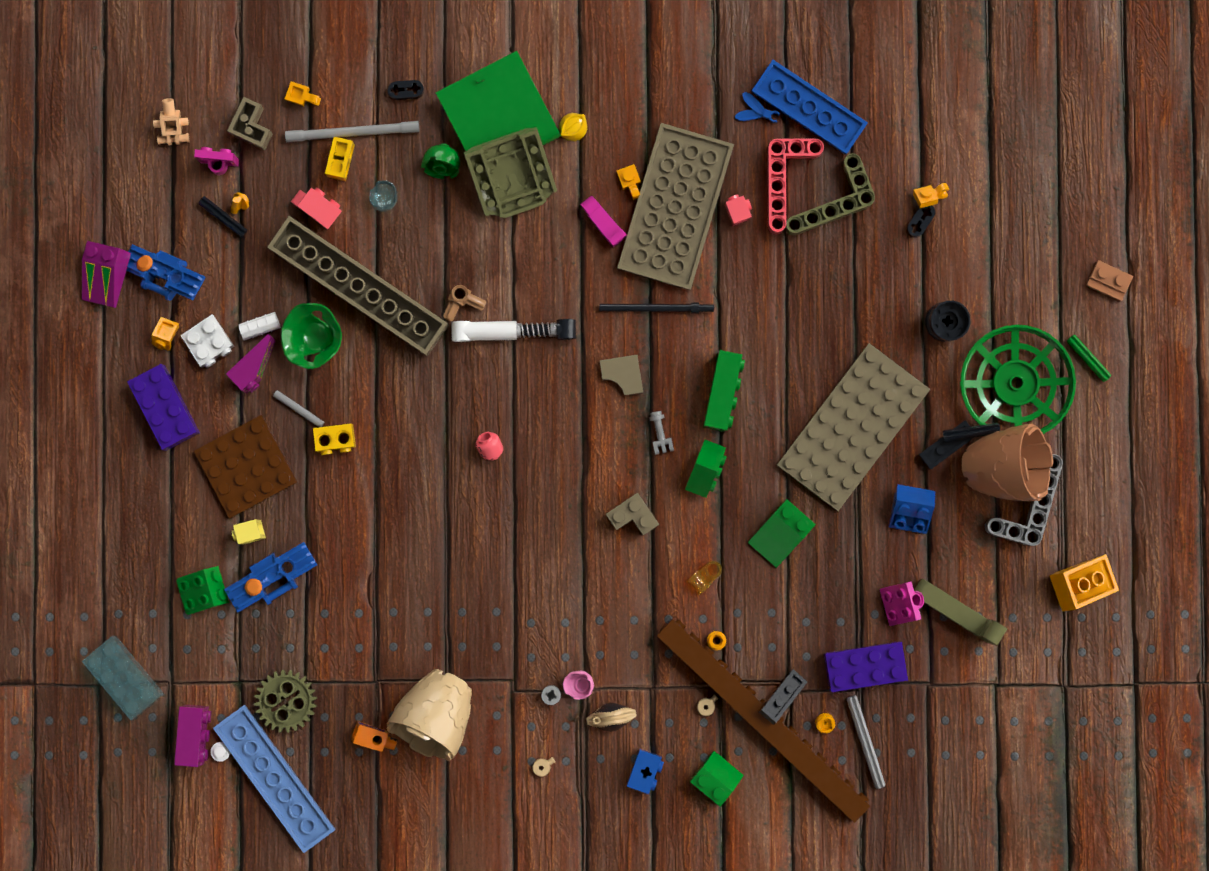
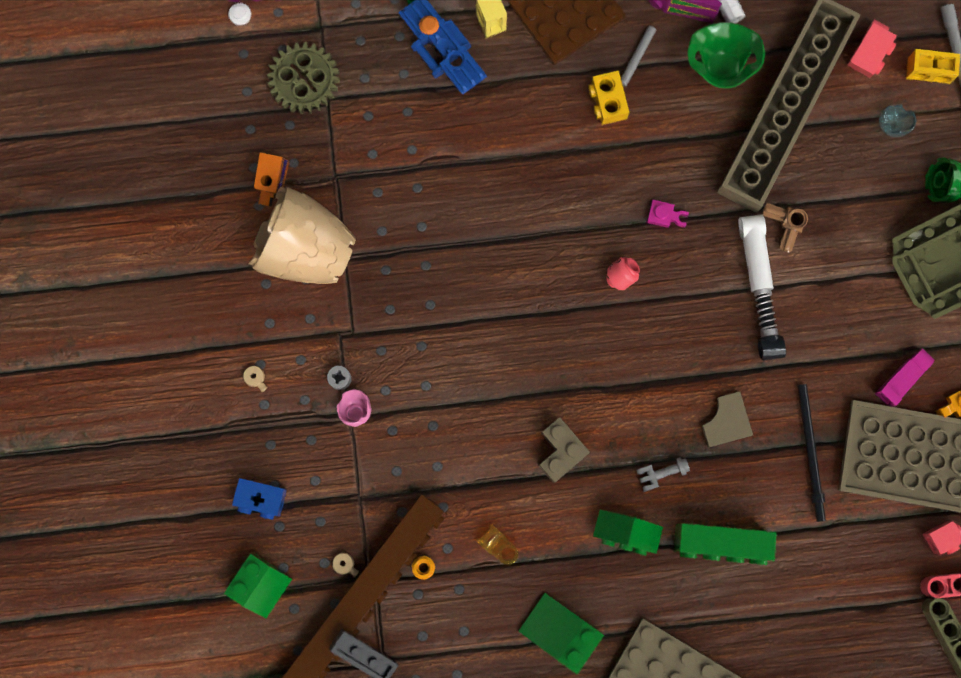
camera: 80 degrees right, 5 degrees down
(274, 778) = (214, 76): medium blue plate -> none
(440, 404) = (663, 214): none -> dark pink plate
(611, 717) = (320, 452): tan hat -> none

